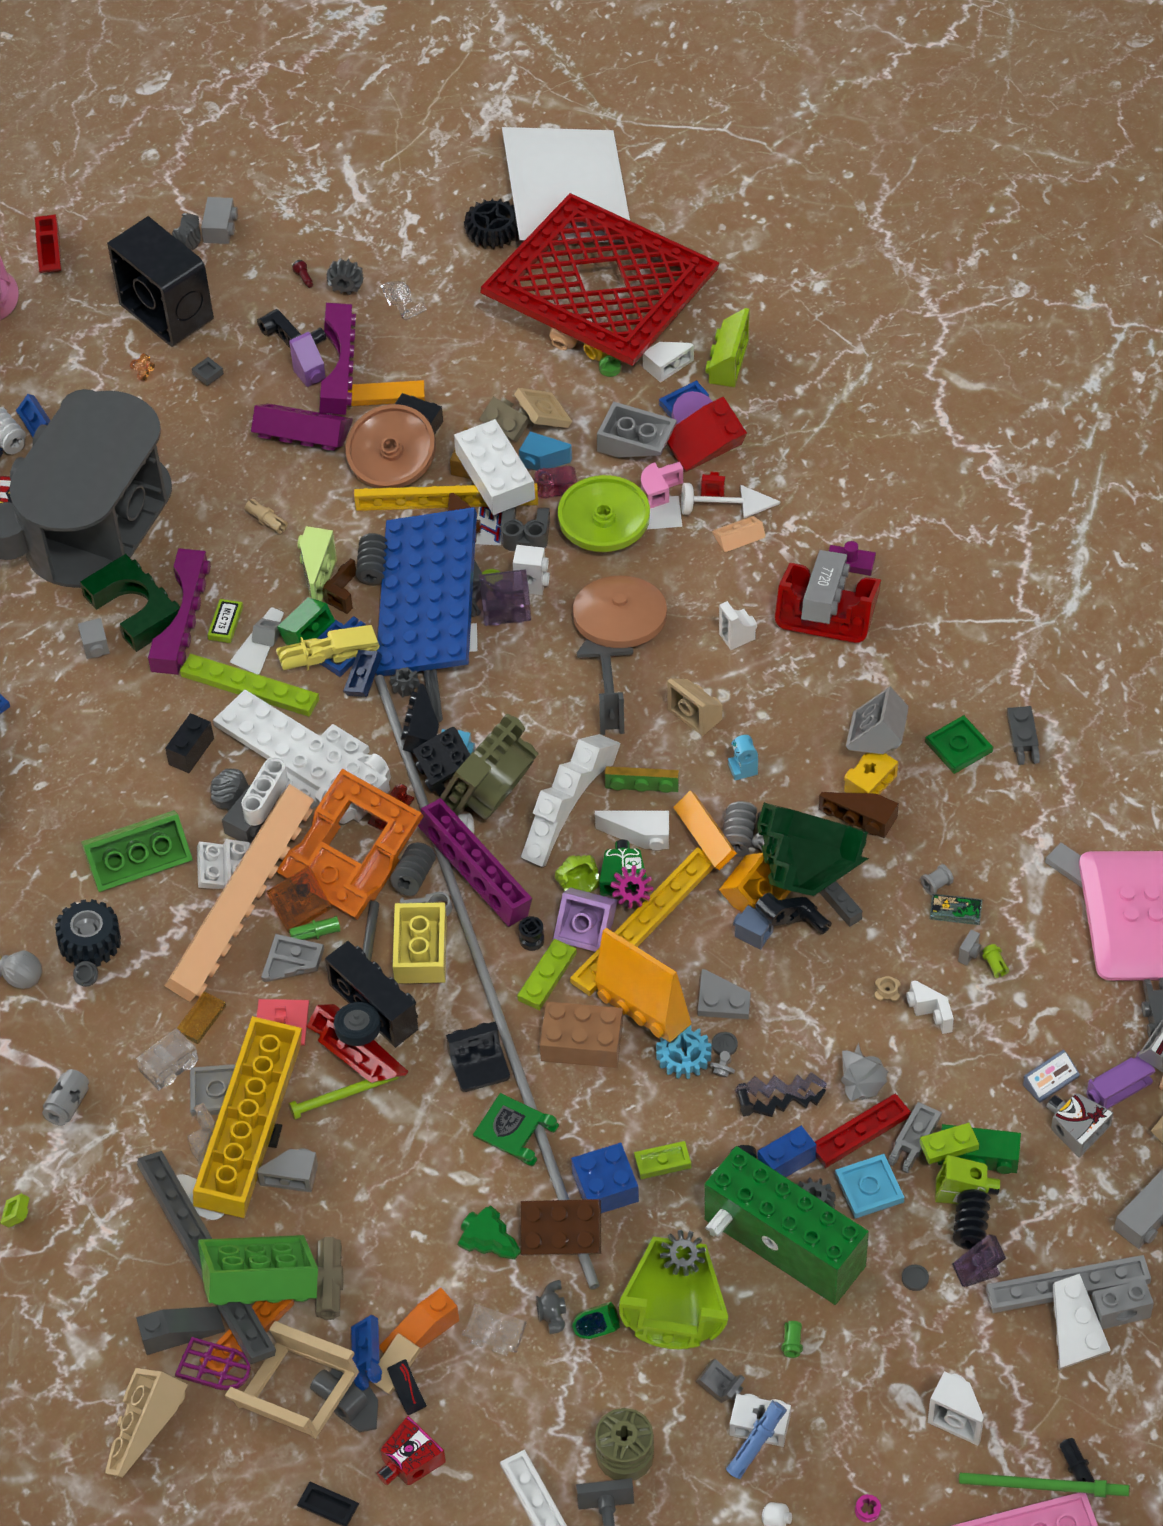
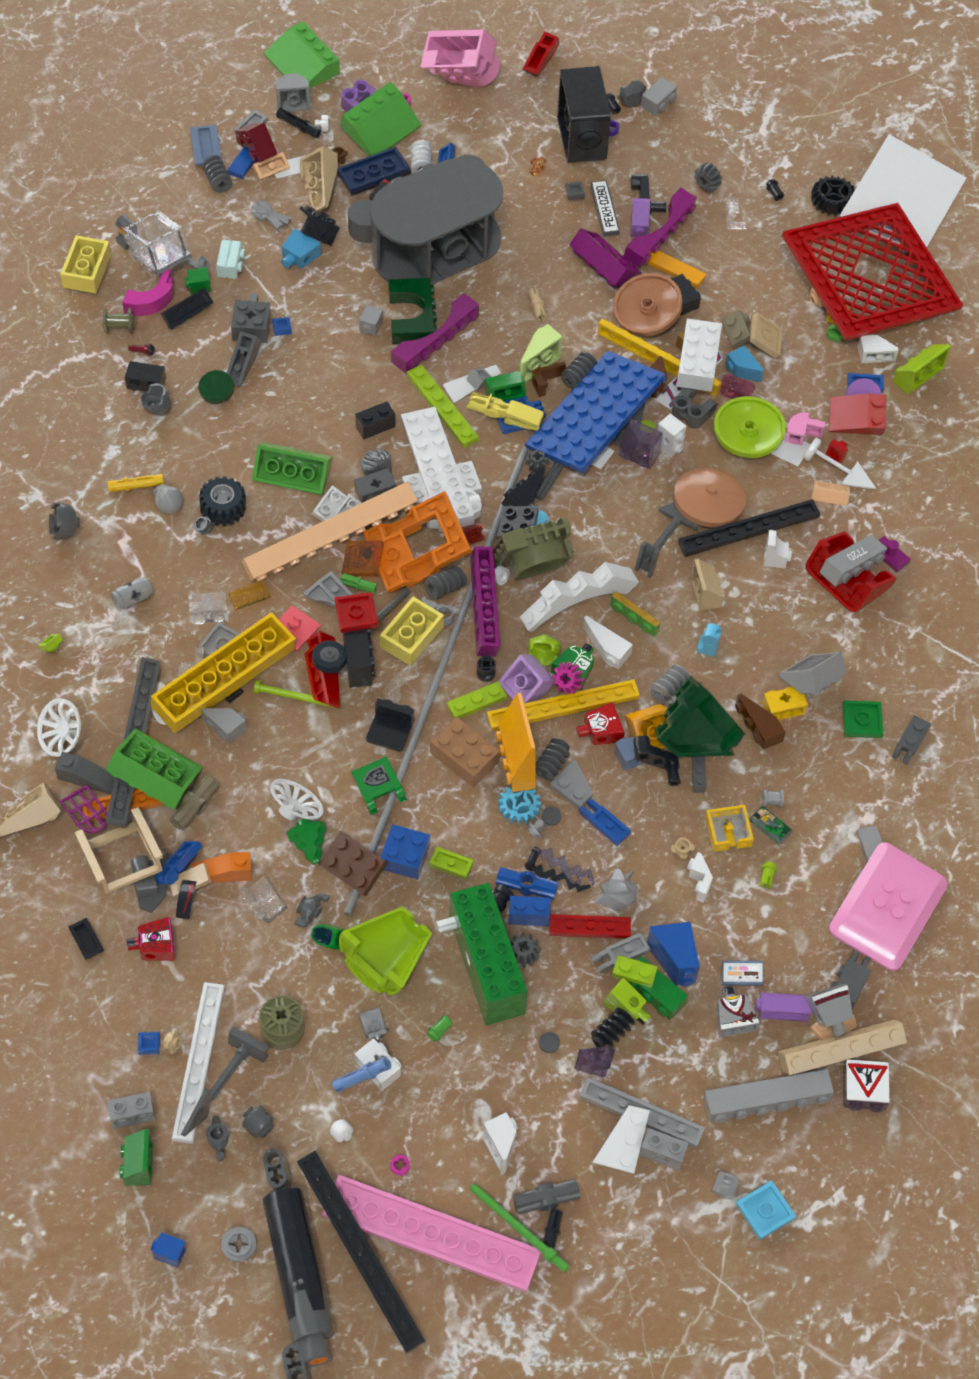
camera: 30 degrees right, 5 degrees up
(112, 1293) = (64, 727): none -> white wheel
(225, 621) = (459, 356): tile -> none
(255, 372) = (605, 208): none -> tile
(264, 791) = (391, 476): white beam -> none
(300, 268) = (686, 157): dark red piece -> none
(351, 956) = (356, 612): none -> red tile
(362, 673) = (515, 439): dark blue plate -> none
(420, 249) = (772, 186): none -> black pin
(444, 1212) = (291, 806): none -> white wheel
(633, 432) = (811, 384): light grey slope -> none
(681, 1261) = (410, 920): dark grey gear -> none
(685, 619) = (748, 527): none -> black plate
(687, 977) = (552, 759): none -> dark grey piece
(704, 915) = (602, 725): none -> torso
(705, 830) = (646, 671): light orange tile -> none
(773, 1124) = (538, 887): none -> blue piece
(787, 1013) = (605, 822): none -> blue hinge
(869, 1186) = (566, 965): medium azure plate -> none
(919, 938) = (729, 828): none -> yellow piece
(970, 948) = (757, 855): light grey plate -> none
(973, 1096) = (675, 951): none -> blue slope
(1044, 1435) = (546, 1197): none -> dark grey piece

